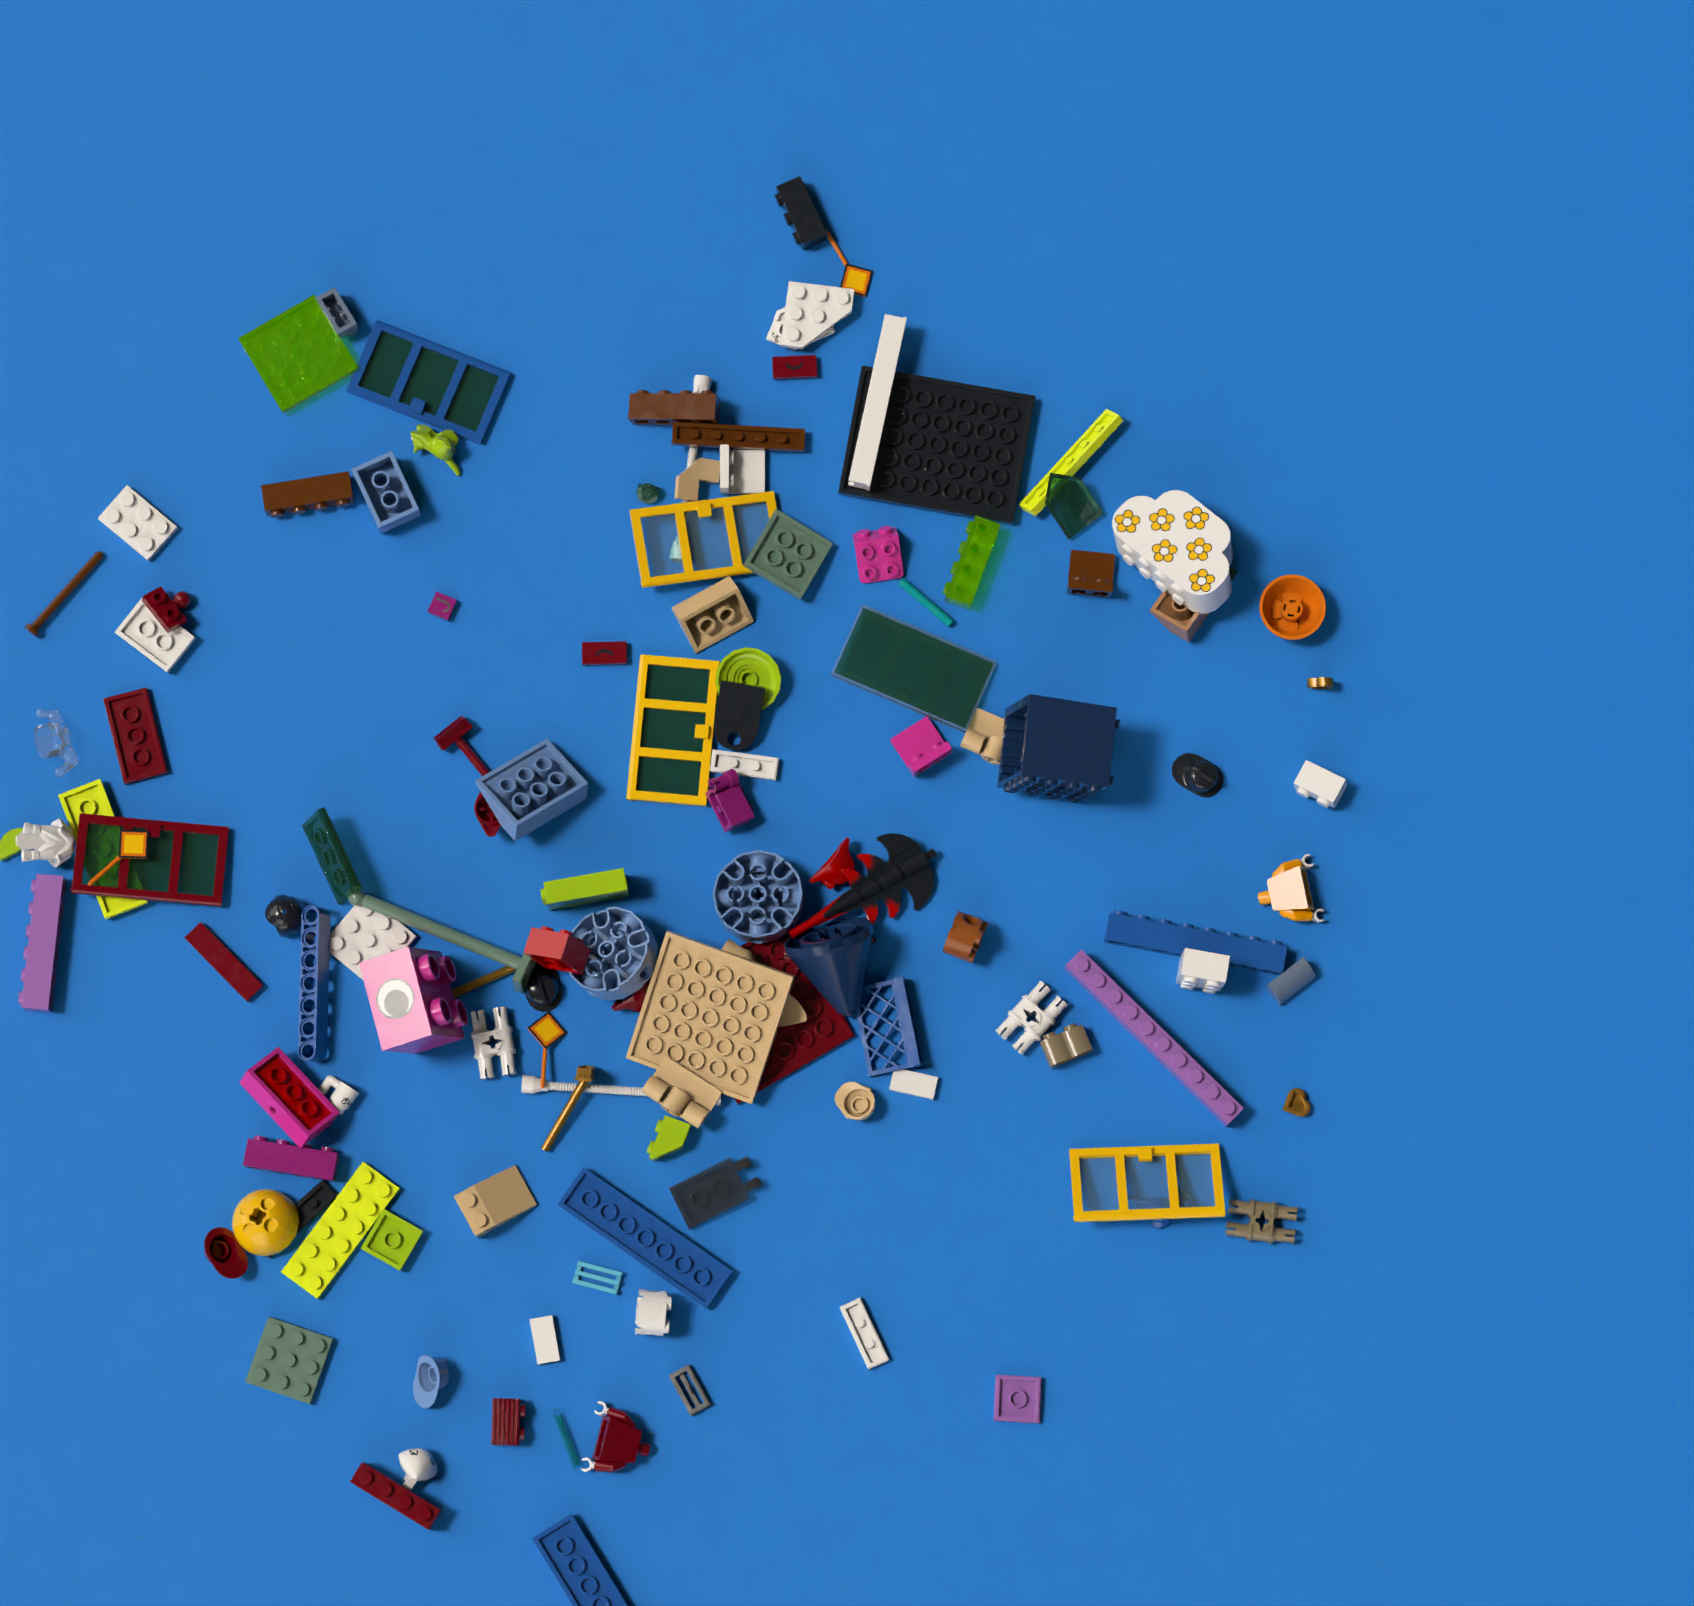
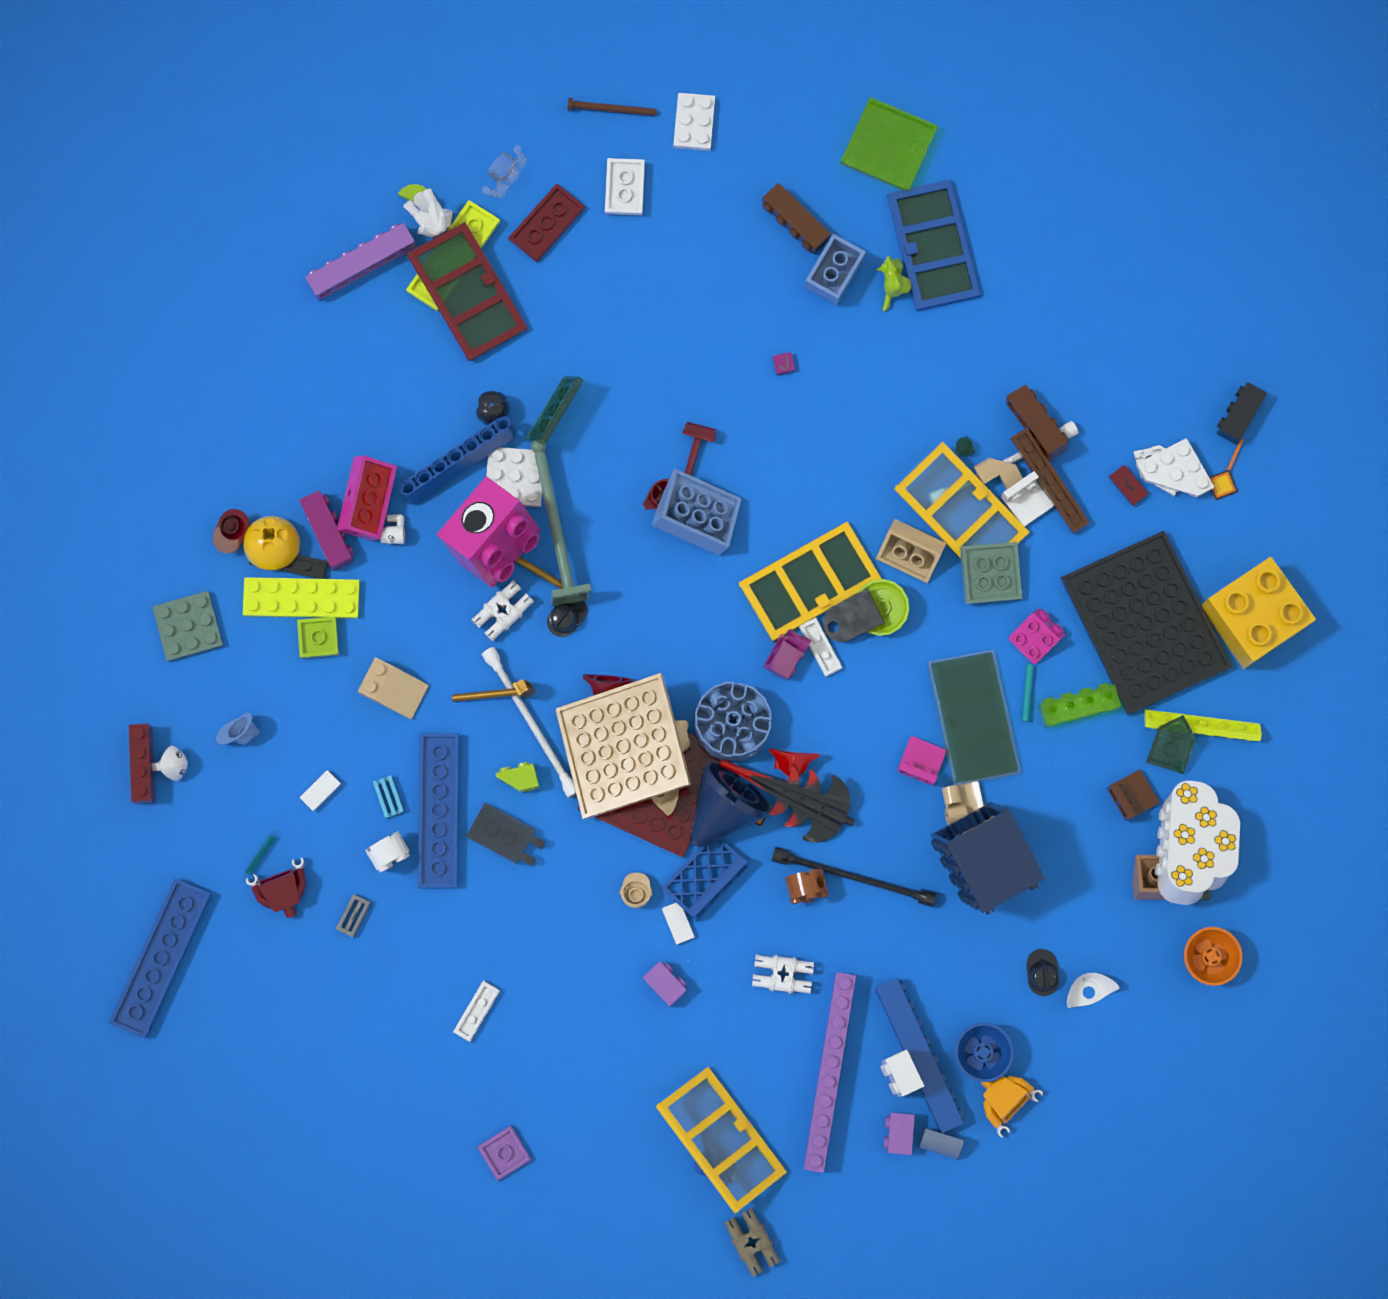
camera: 55 degrees right, 0 degrees up
(132, 845) = (467, 271): piece -> none
(167, 610) = (646, 181): dark red plate -> none
(223, 962) = (432, 390): dark red tile -> none
(337, 313) = (935, 149): sand blue brick -> none
(507, 1422) = (244, 804): dark red brick -> none
(546, 1032) = (536, 641): piece -> none
(557, 950) = (594, 606): red brick -> none
(585, 889) = (653, 598): lime brick -> none
(604, 653) = (830, 496): dark red tile -> none
(620, 953) = (619, 647): medium blue brick -> none
(681, 1092) = (556, 764): tan panel -> none
(877, 402) = (1145, 558): white tile -> none
(963, 1135) = (665, 983): none -> medium lavender brick
(1002, 336) = (1257, 612): none -> yellow brick
(1050, 835) = (924, 897): none -> black hose
(1066, 1045) = (779, 1012): dark tan brick -> none
(1241, 870) = (995, 1052): none -> blue piece
(1248, 729) = (1100, 983): none -> white piece
(1255, 1013) = (900, 1133): none -> medium lavender brick
(1296, 1103) = (855, 1208): pearl gold tile -> none
(1320, 683) = (1173, 1015): pearl gold tile -> none
(1320, 784) = (1098, 1066): white brick -> none

